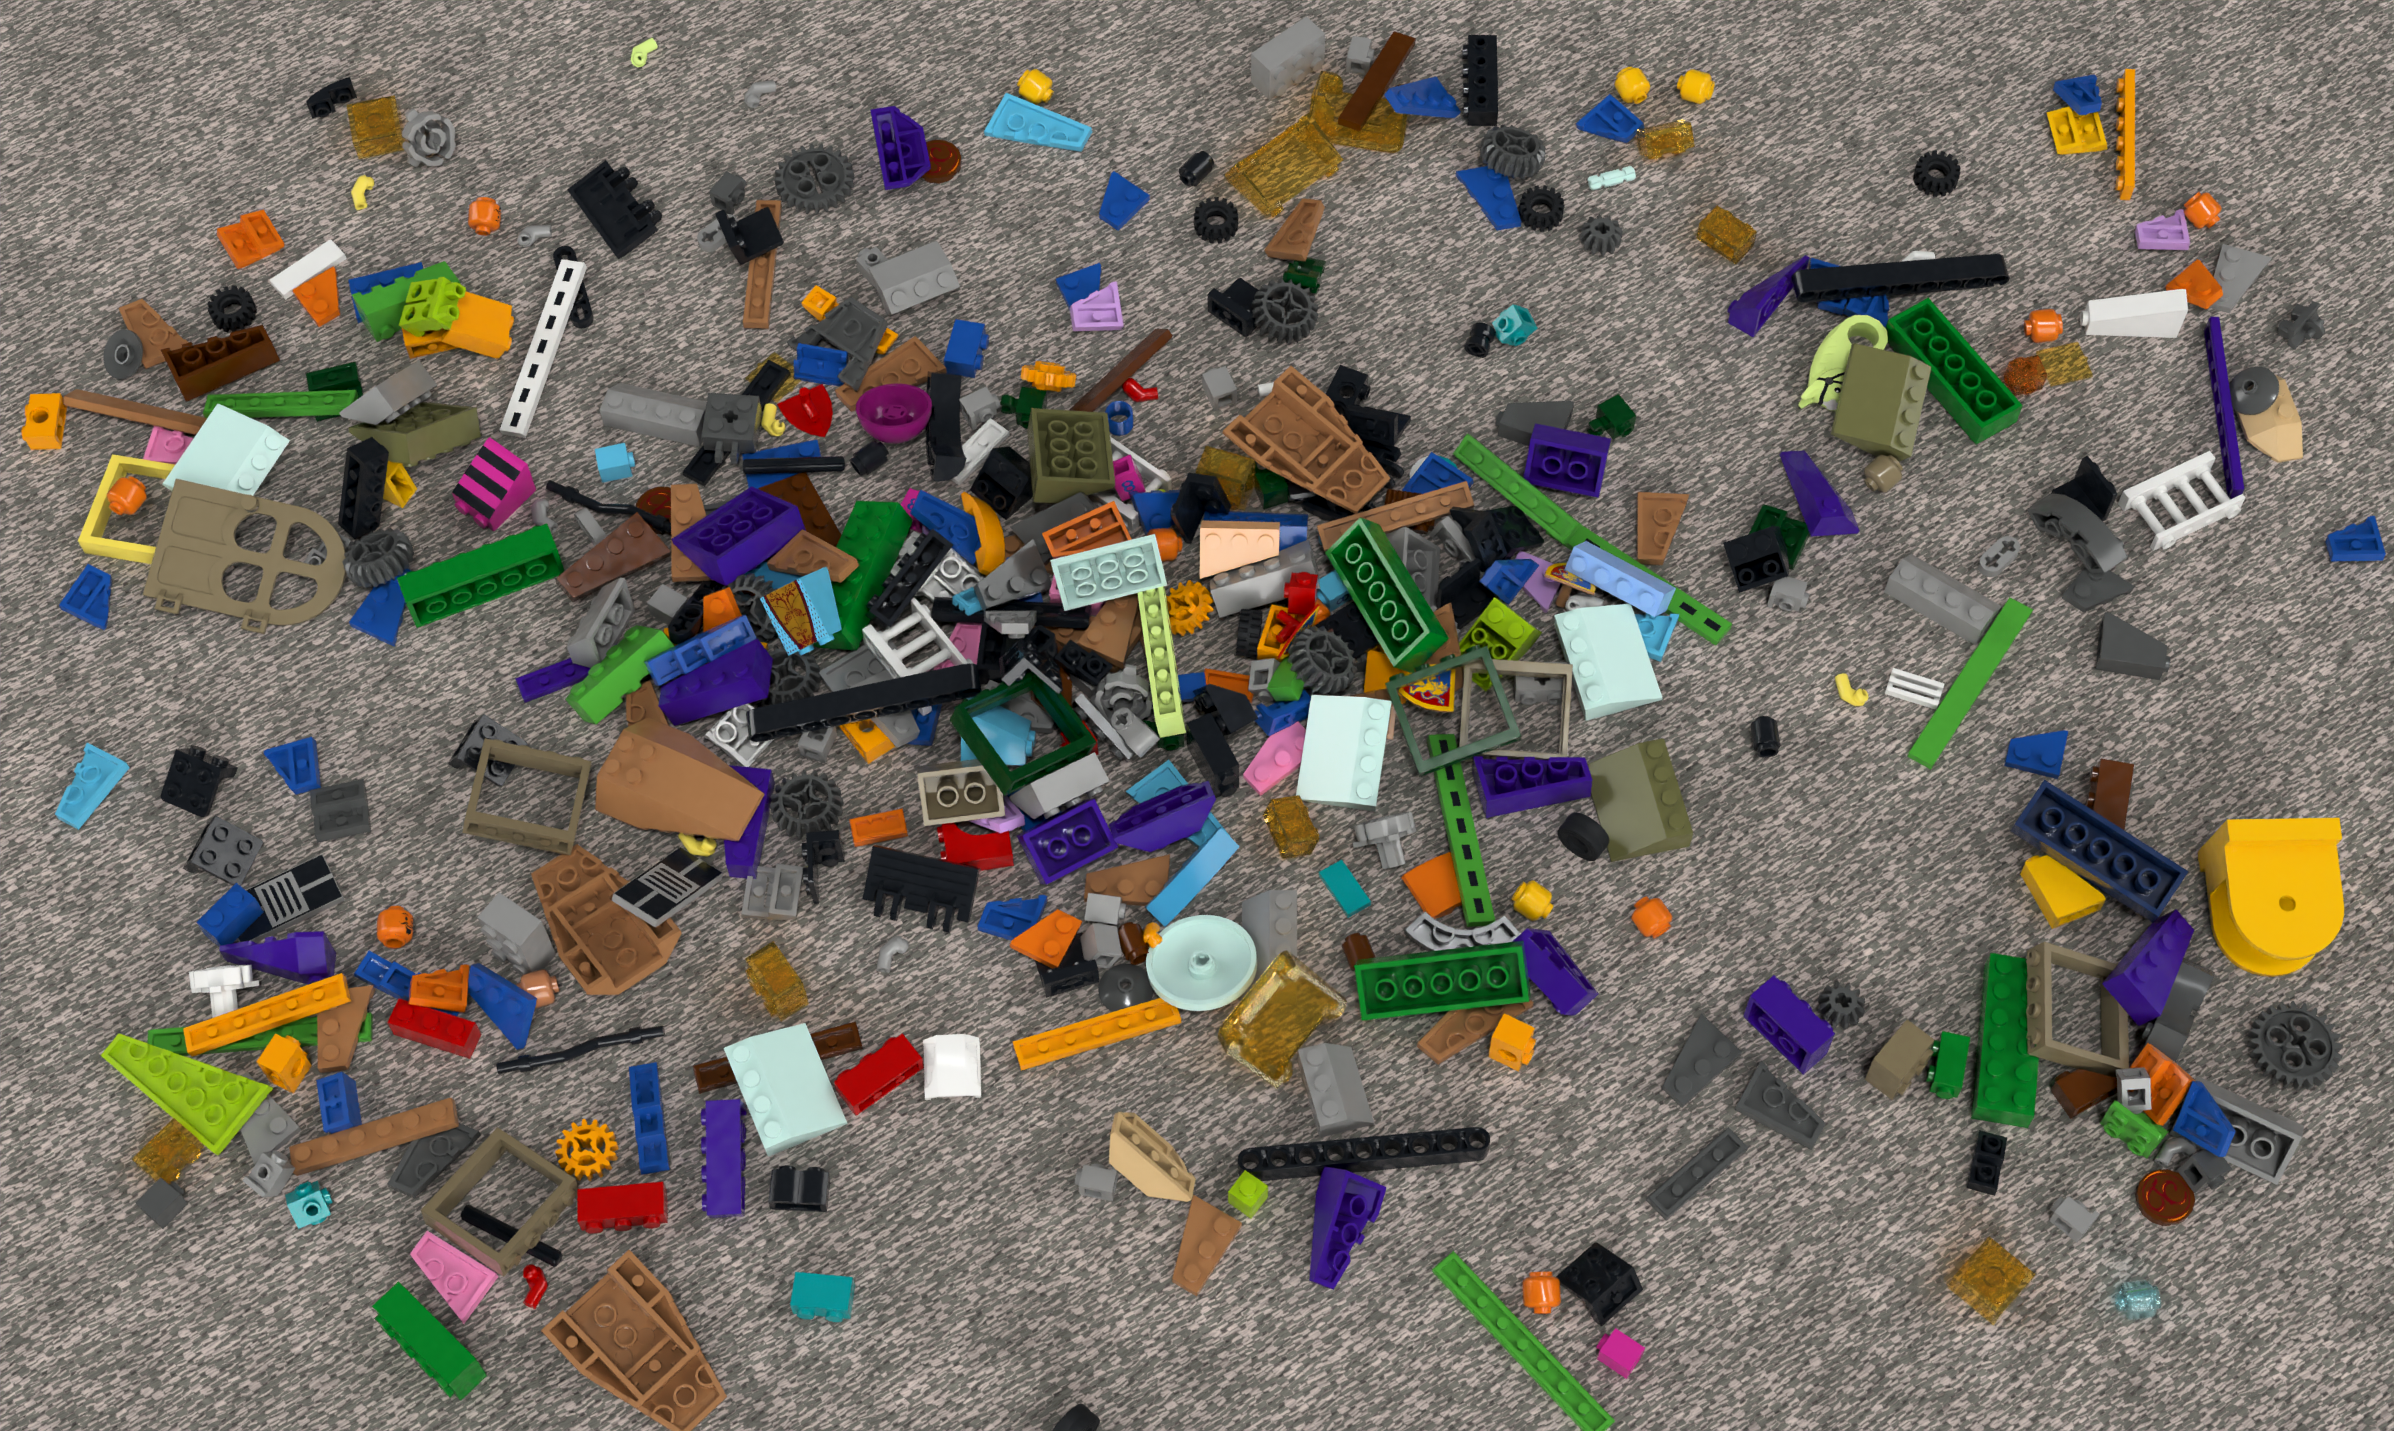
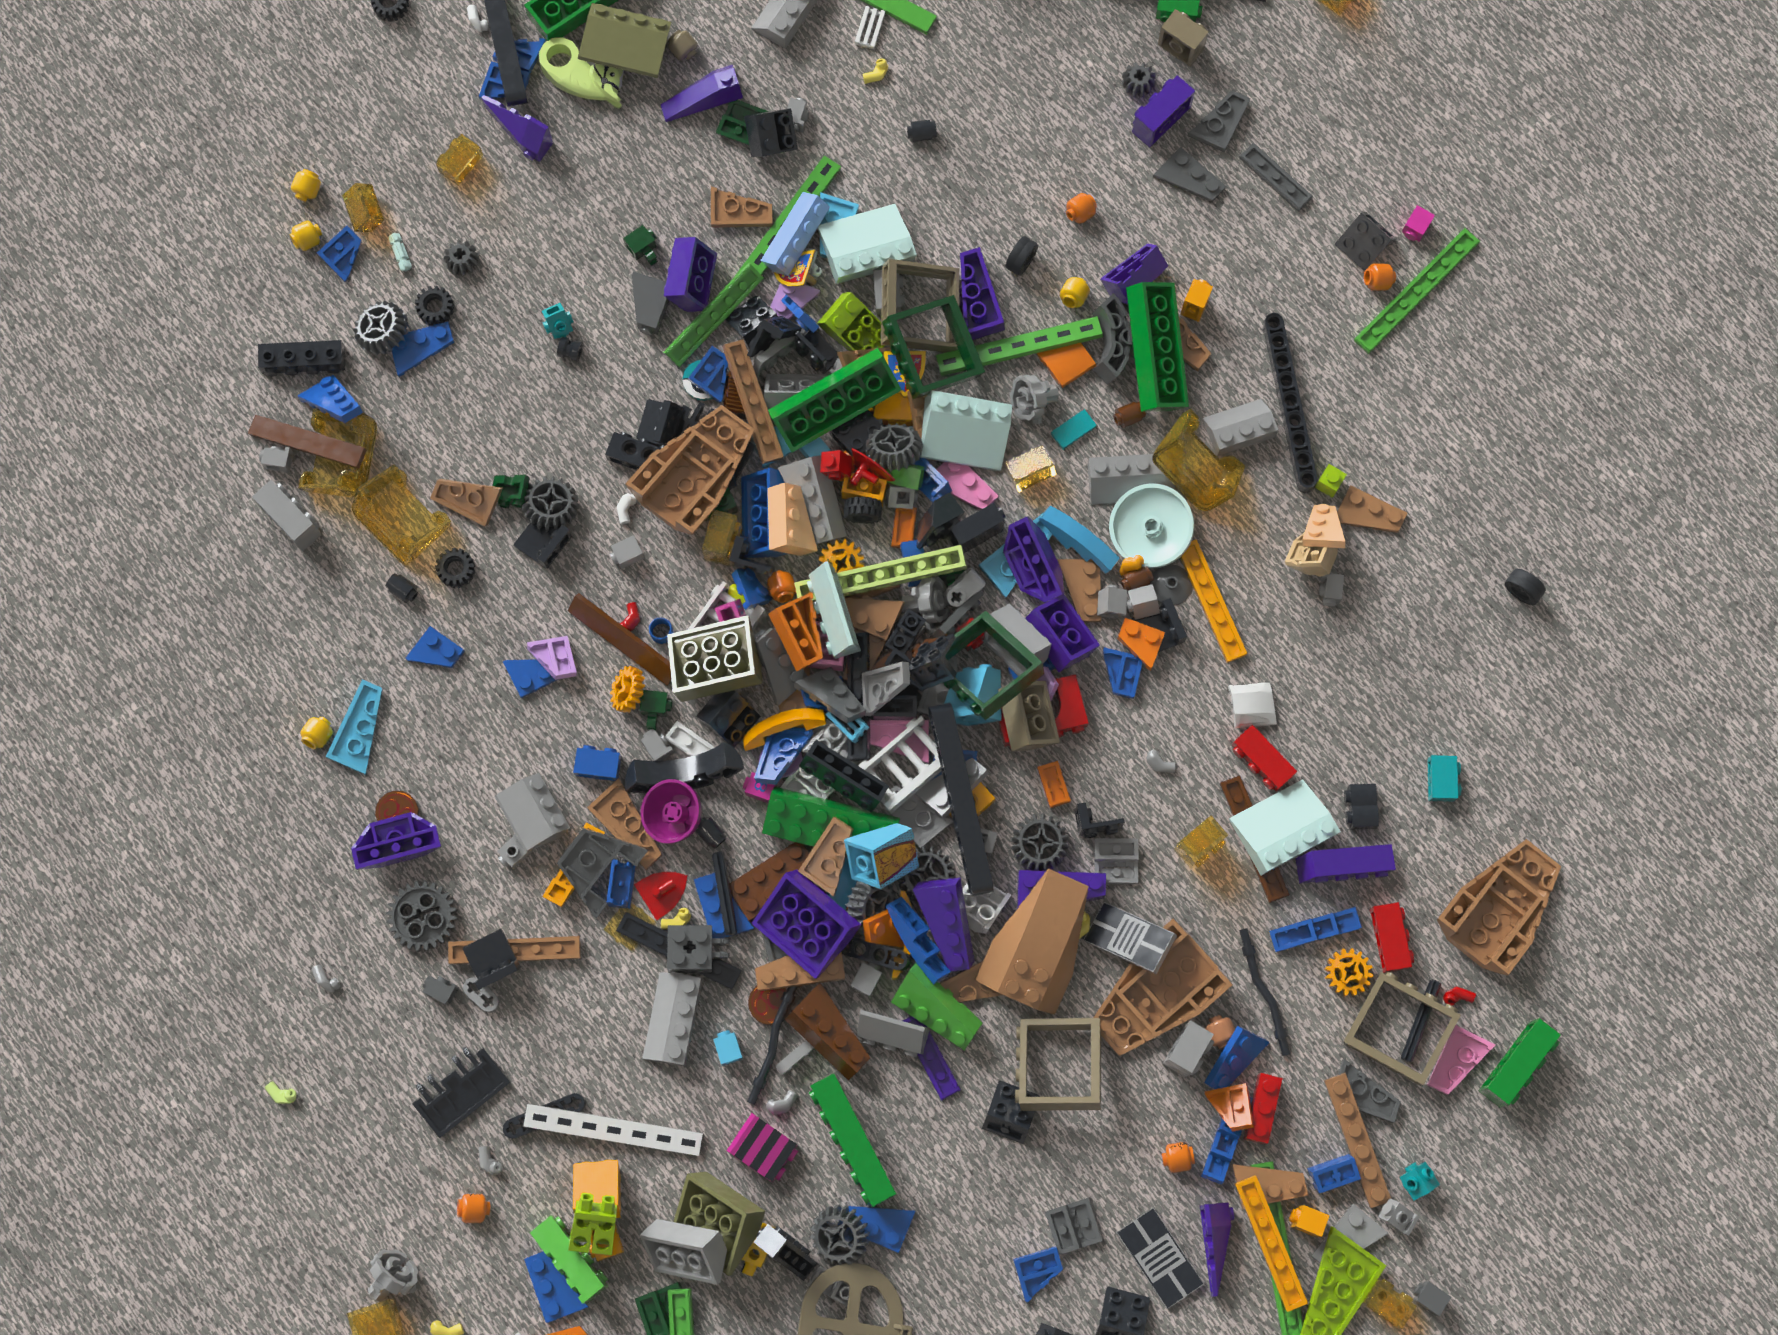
camera: 95 degrees left, 15 degrees up
(222, 985) = (1244, 1288): white piece -> none
(230, 916) = (1187, 1293): blue brick -> none
(924, 882) = (1102, 746): black hinge -> none
(1176, 1166) = (1324, 528): none -> light nougat wing
(1341, 1212) = (1331, 416): dark purple wedge -> none
(1639, 801) = (984, 218): olive slope -> none

